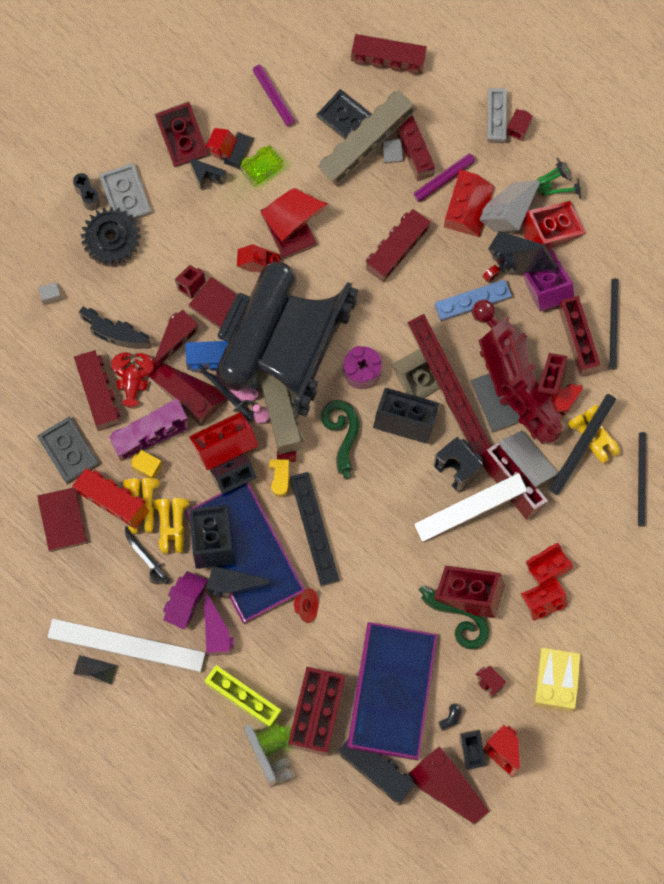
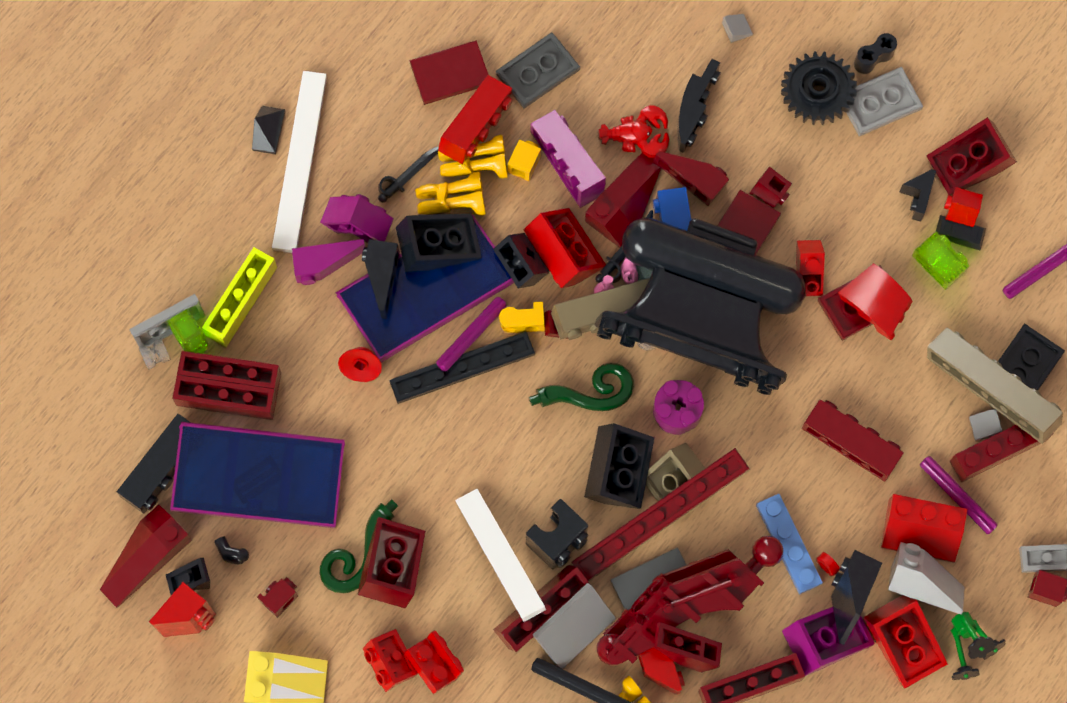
camera: 85 degrees right, 0 degrees up
(96, 390) = (615, 92): dark red brick -> none
(289, 518) = (473, 331): none -> magenta axle

